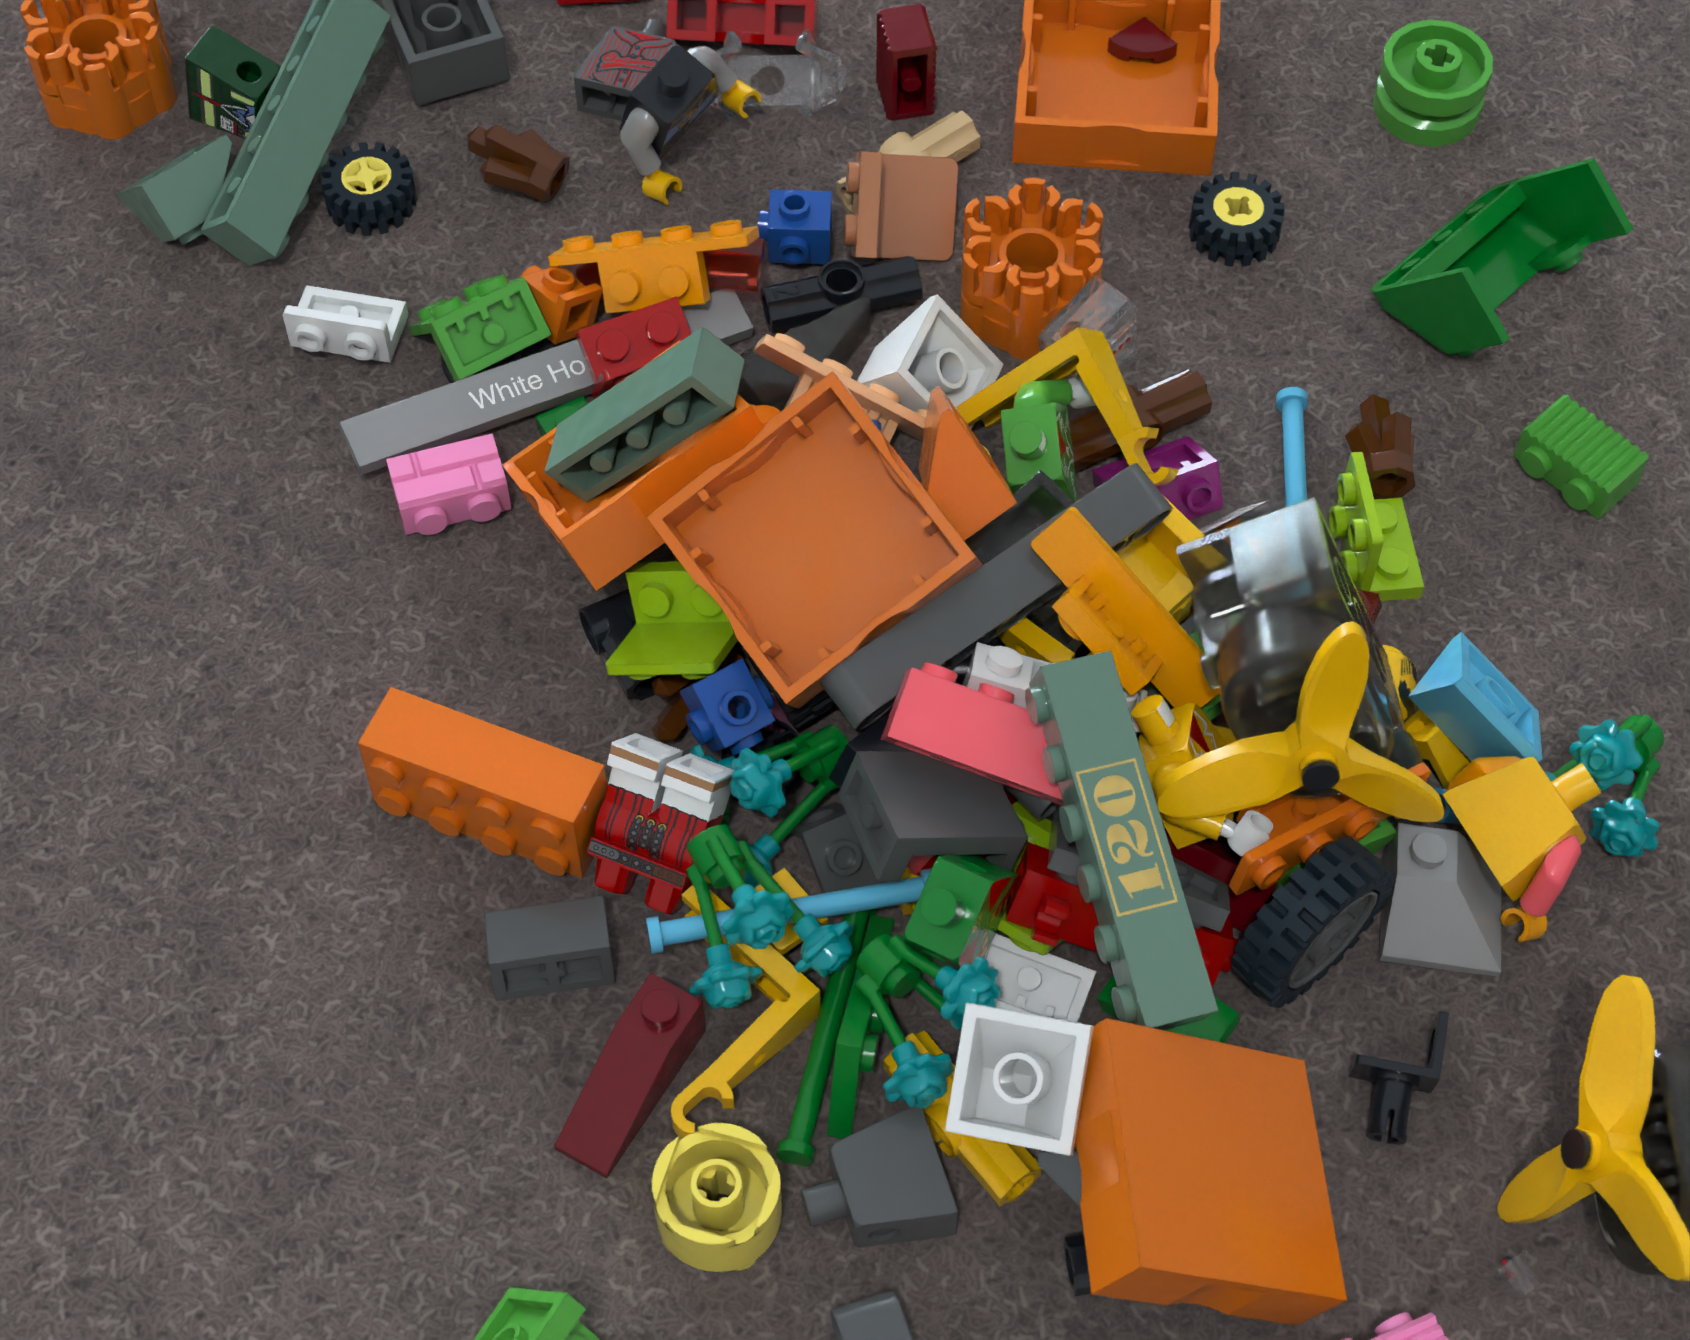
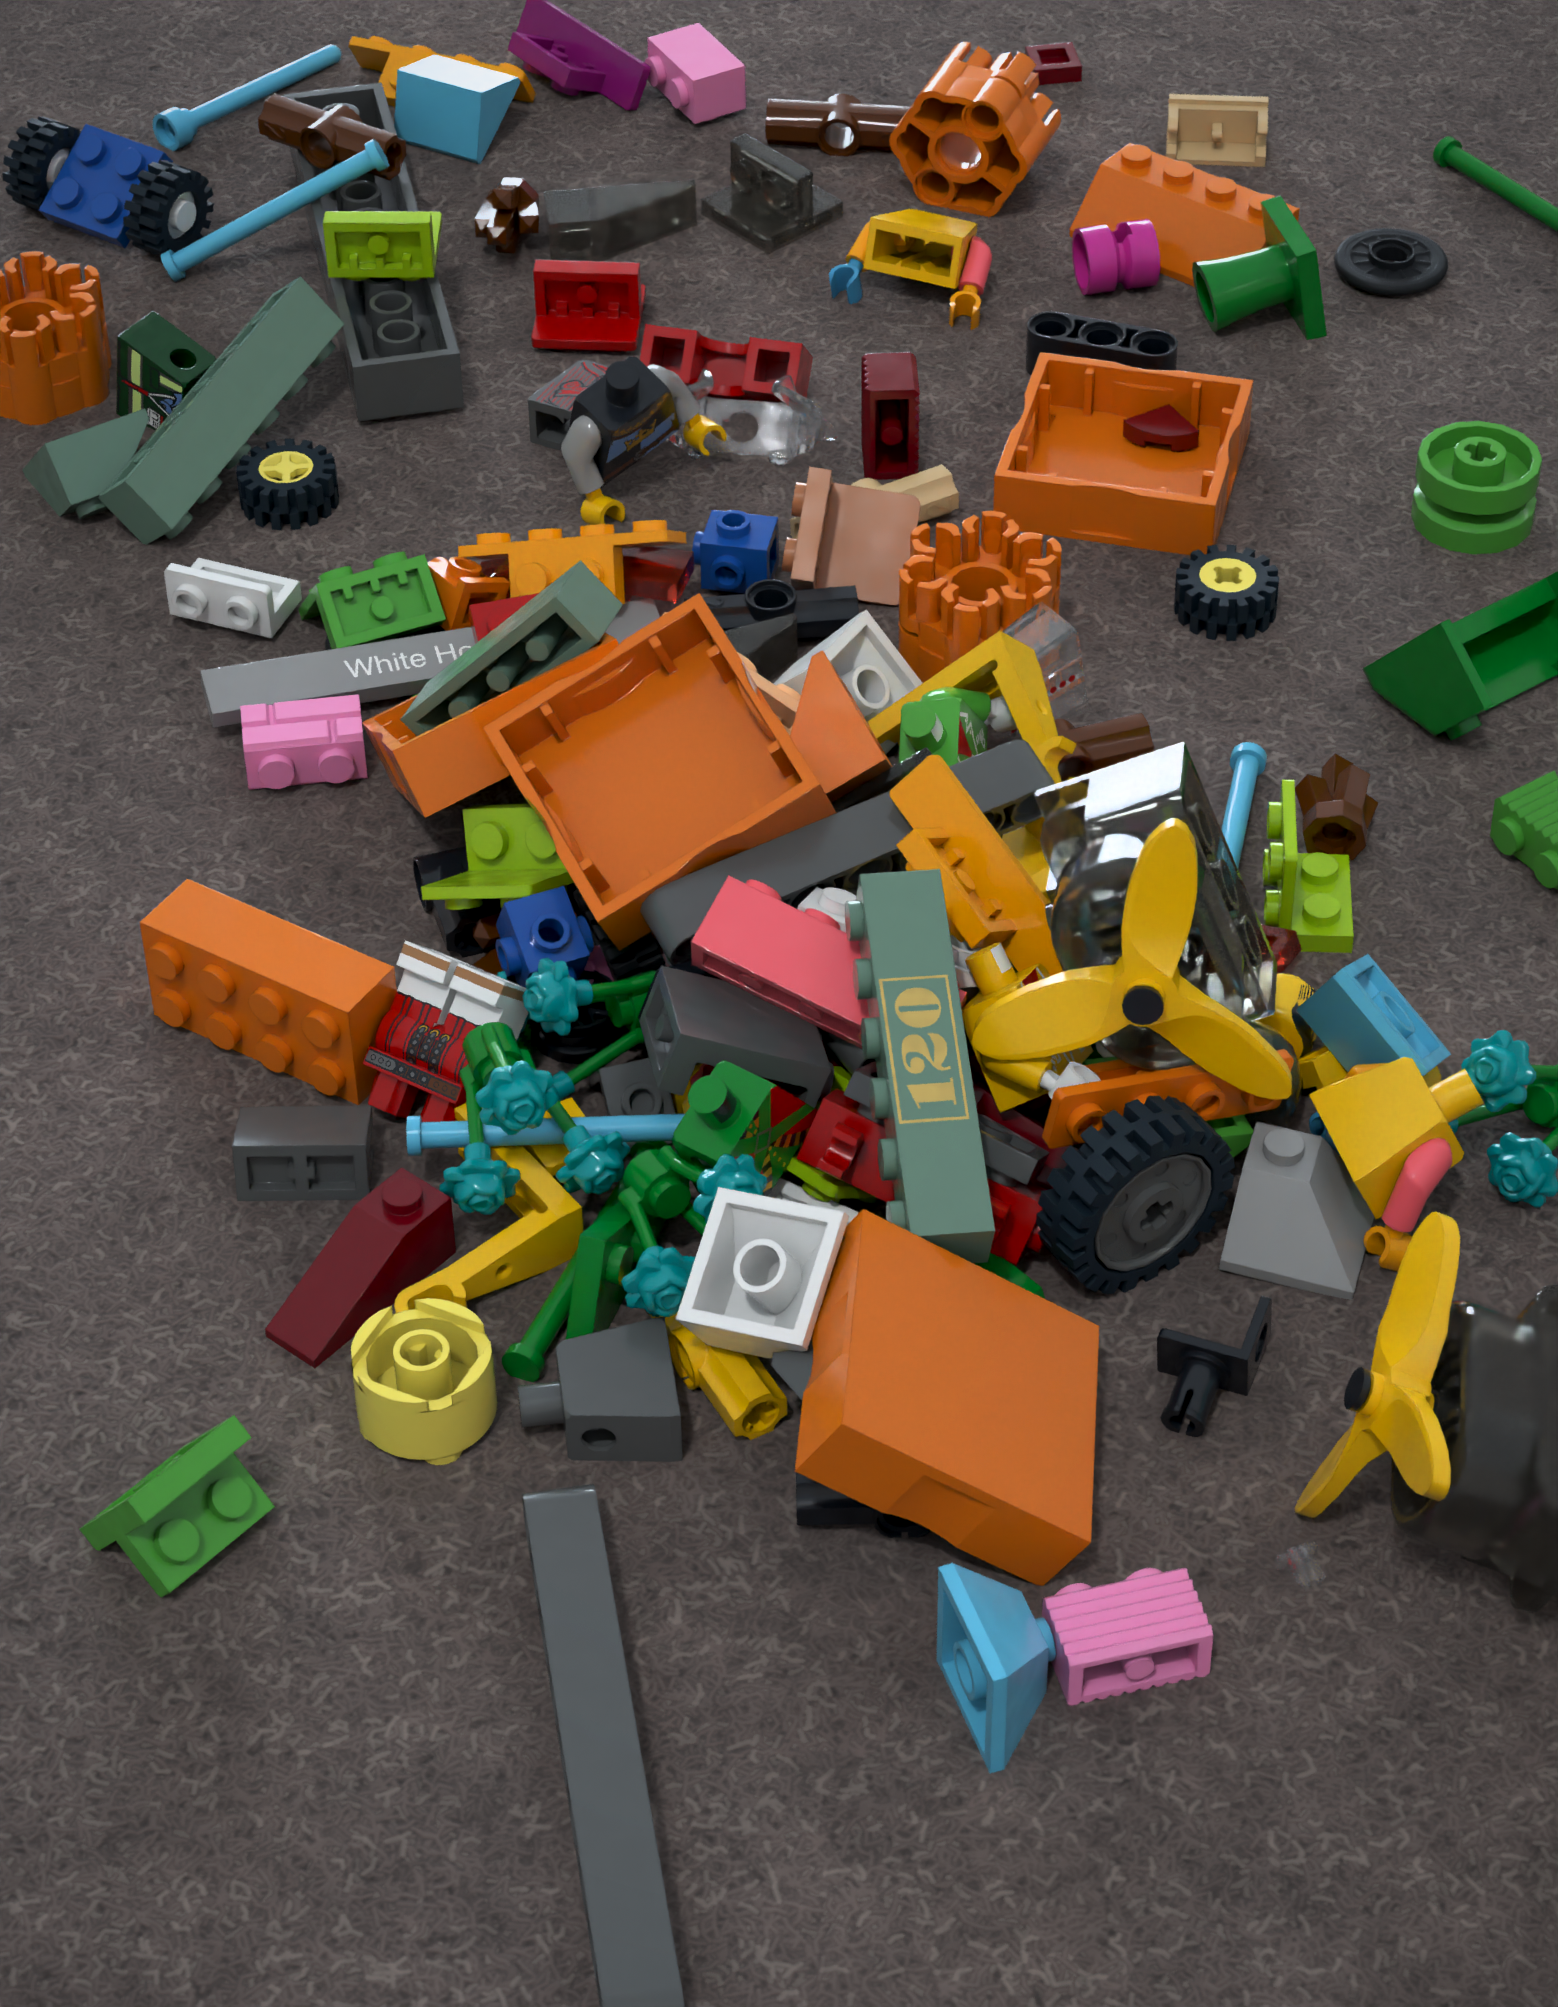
camera: 10 degrees right, 15 degrees down
(519, 161) = (453, 472): reddish brown rock -> none

